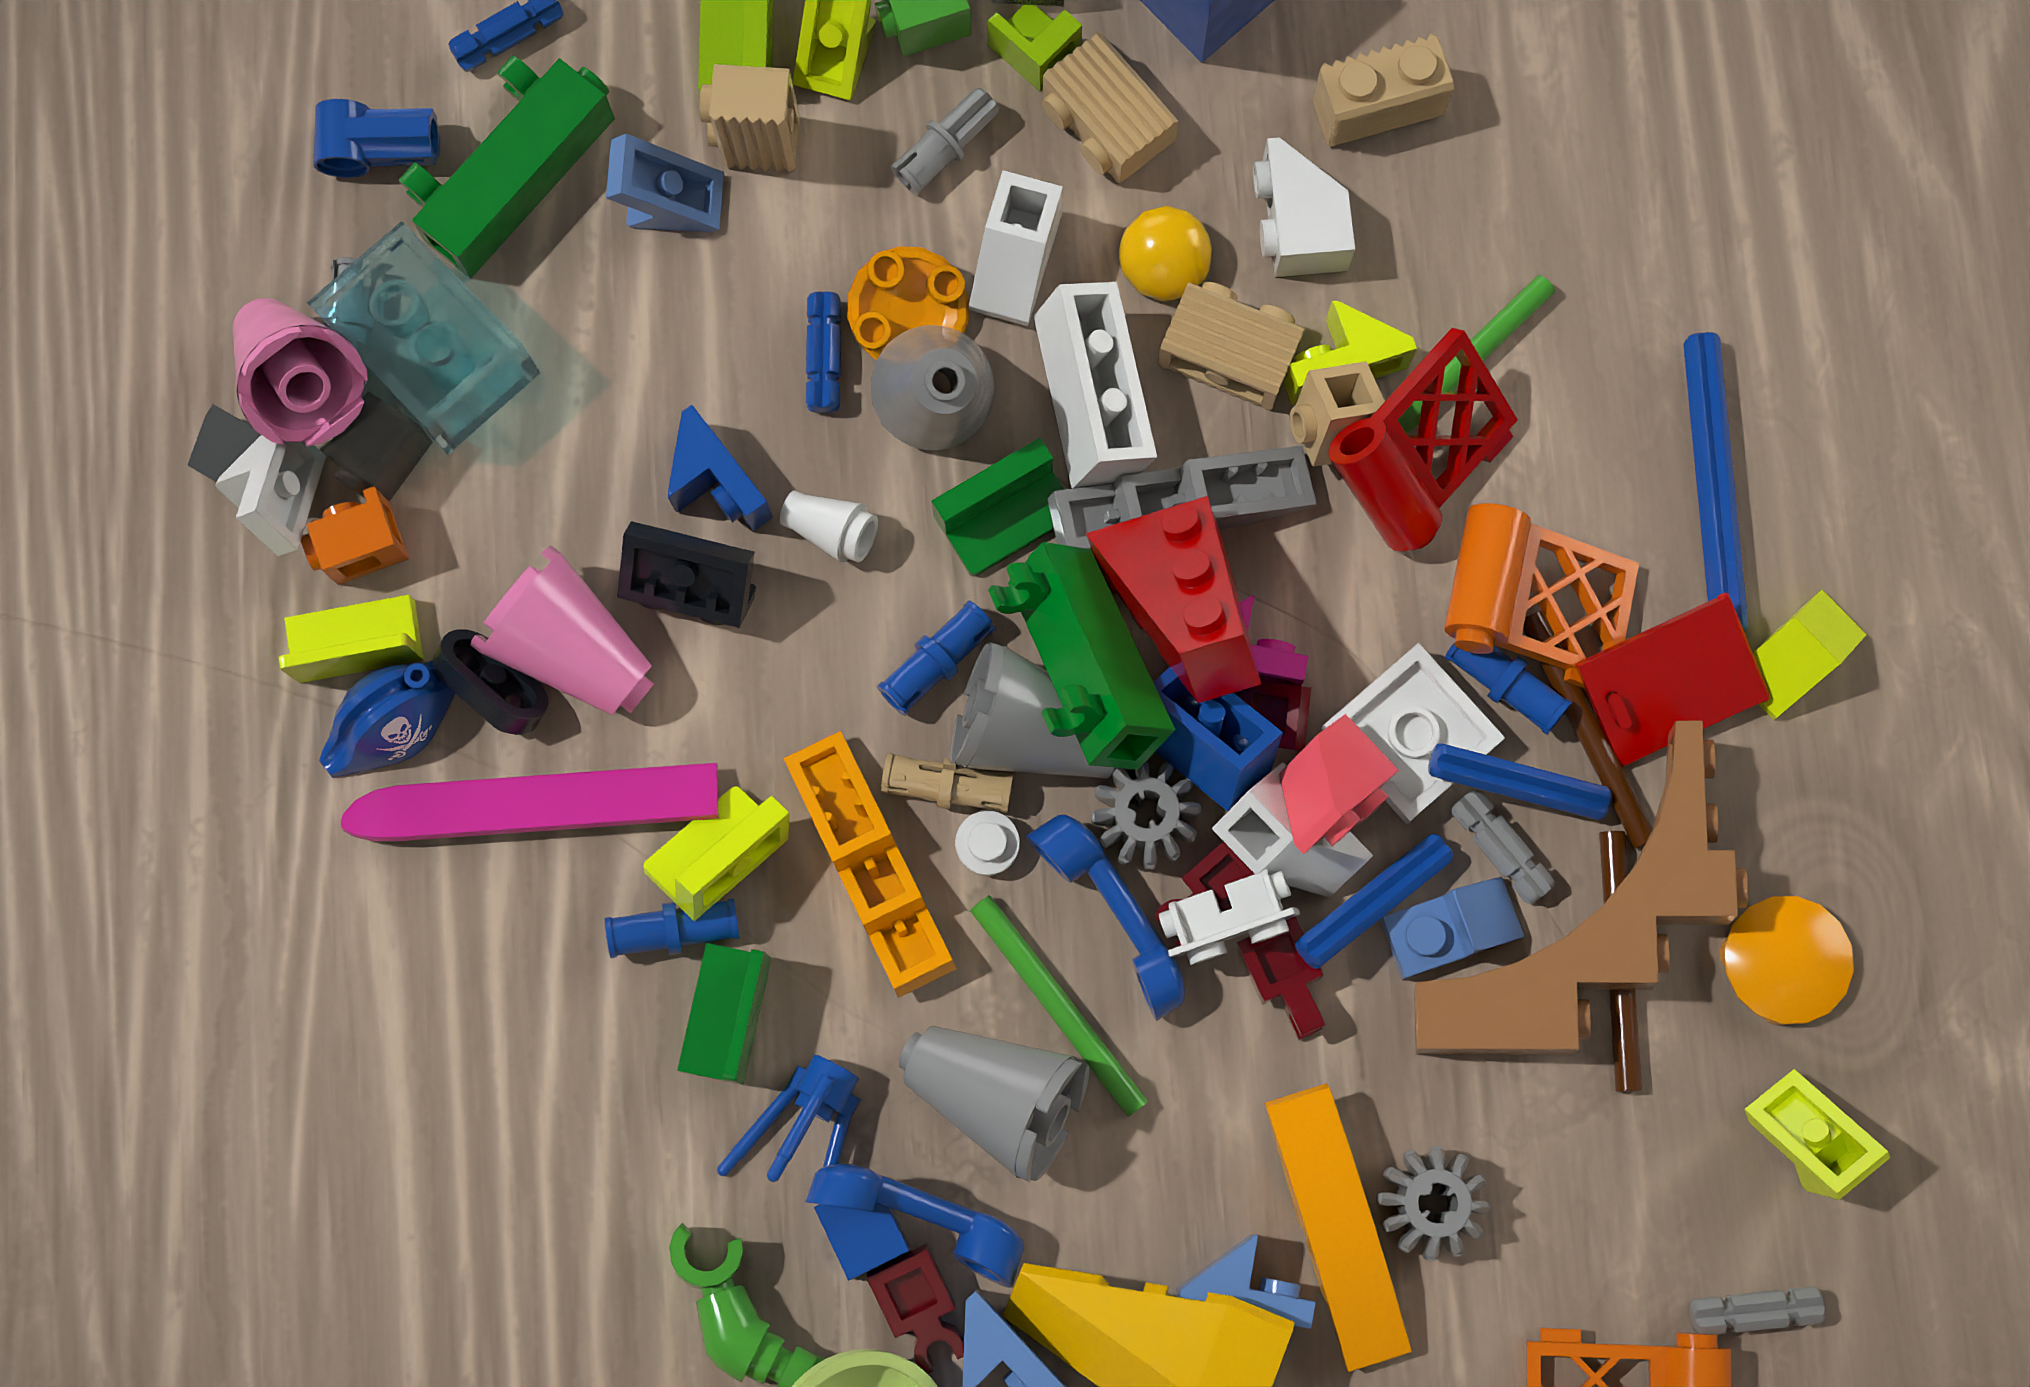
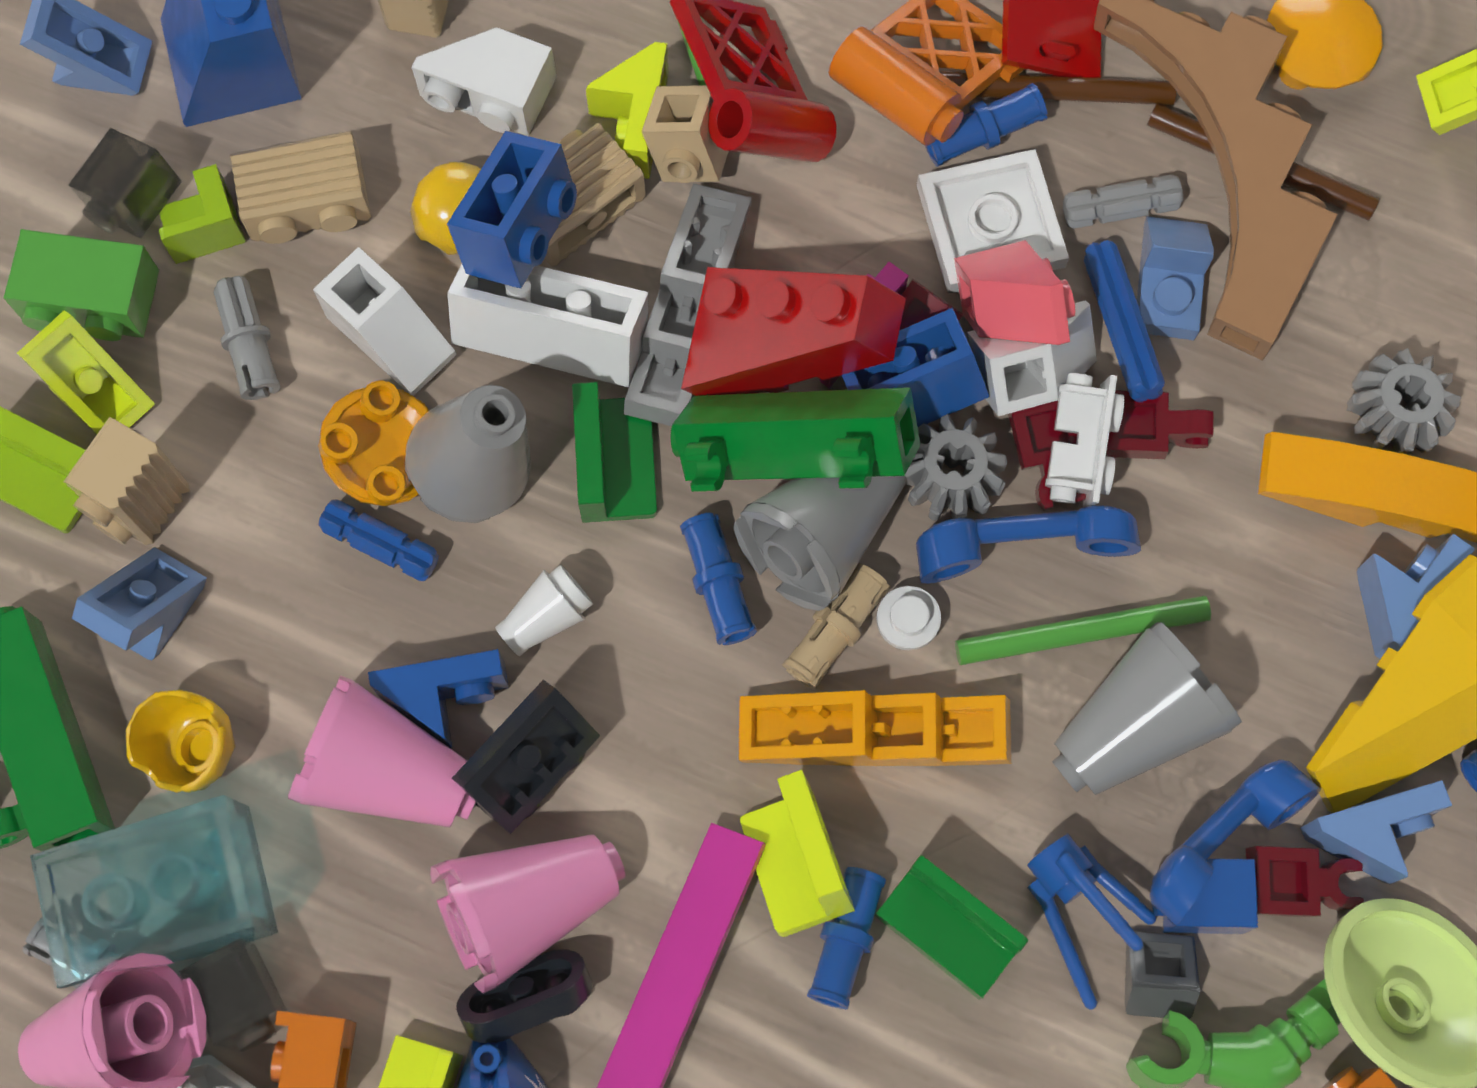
camera: 65 degrees left, 5 degrees down
(562, 286) = (180, 740): none -> yellow hair
(621, 453) = (378, 763): none -> bright pink cone
(777, 1220) = (1162, 976): none -> dark grey slope
(1160, 297) = (513, 209): none -> blue brick
(1519, 781) = (1078, 156): blue axle -> none

